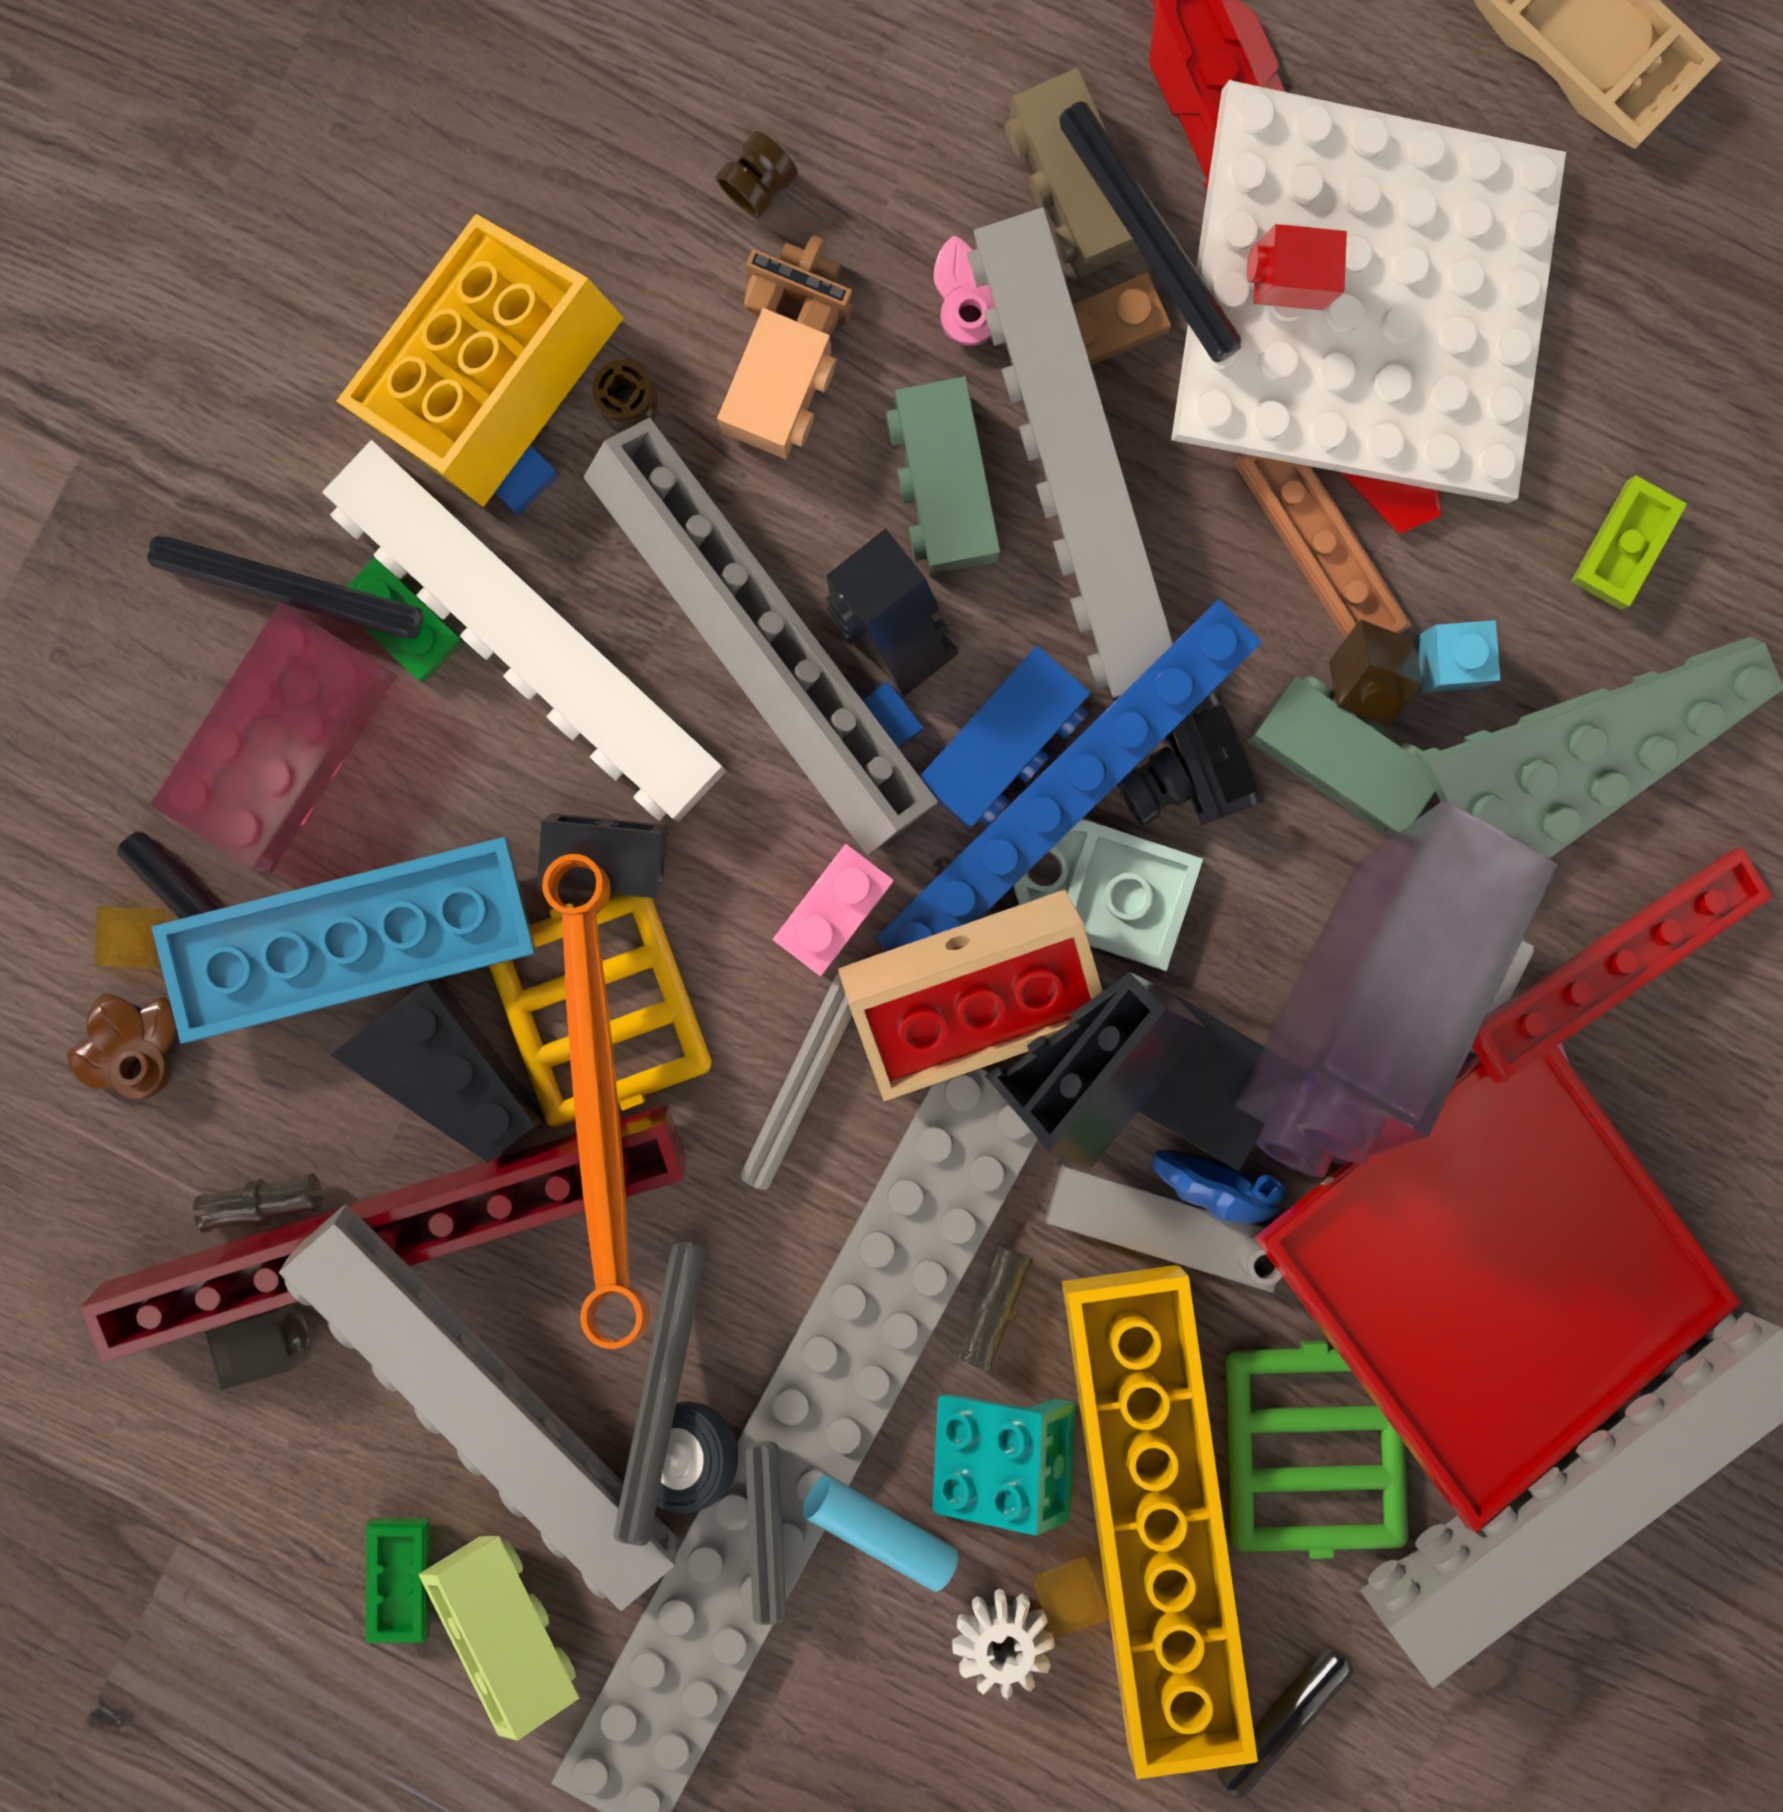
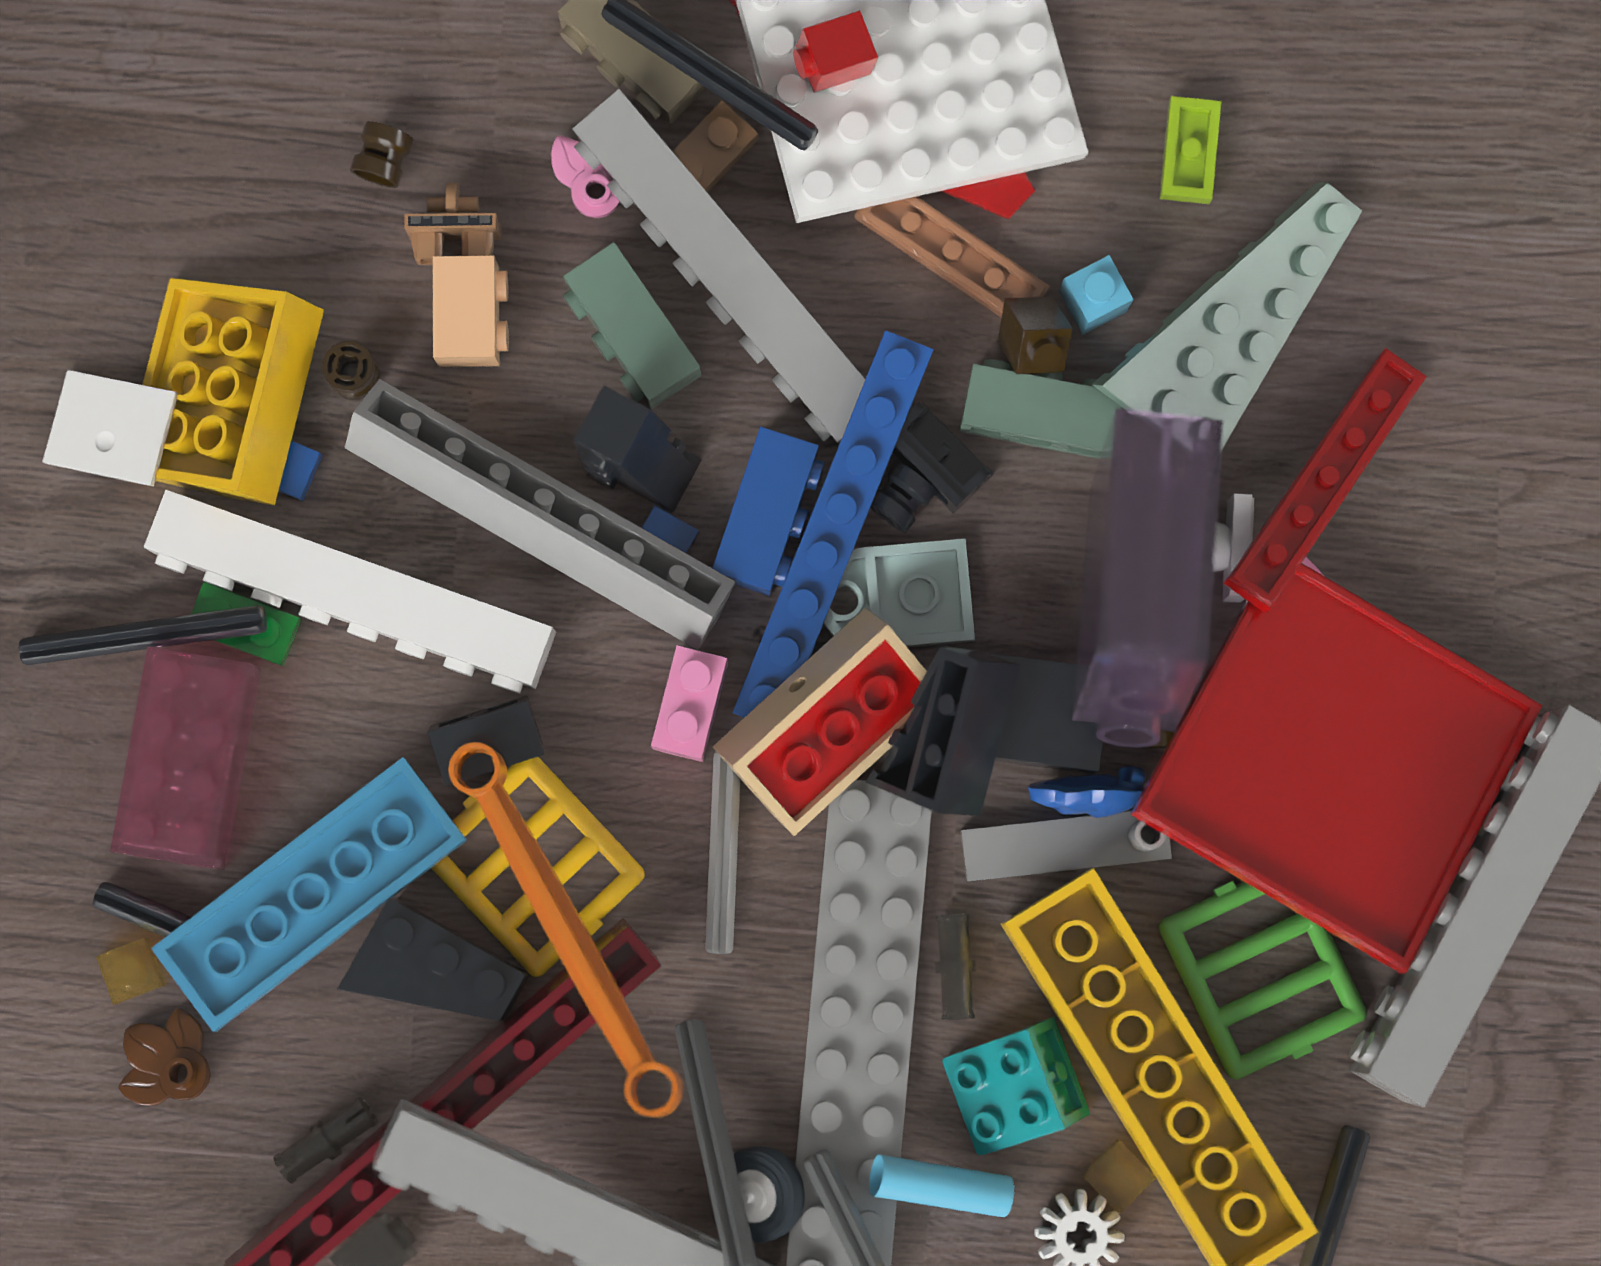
camera: 20 degrees left, 5 degrees down
(344, 348) = (110, 428): none -> white piece

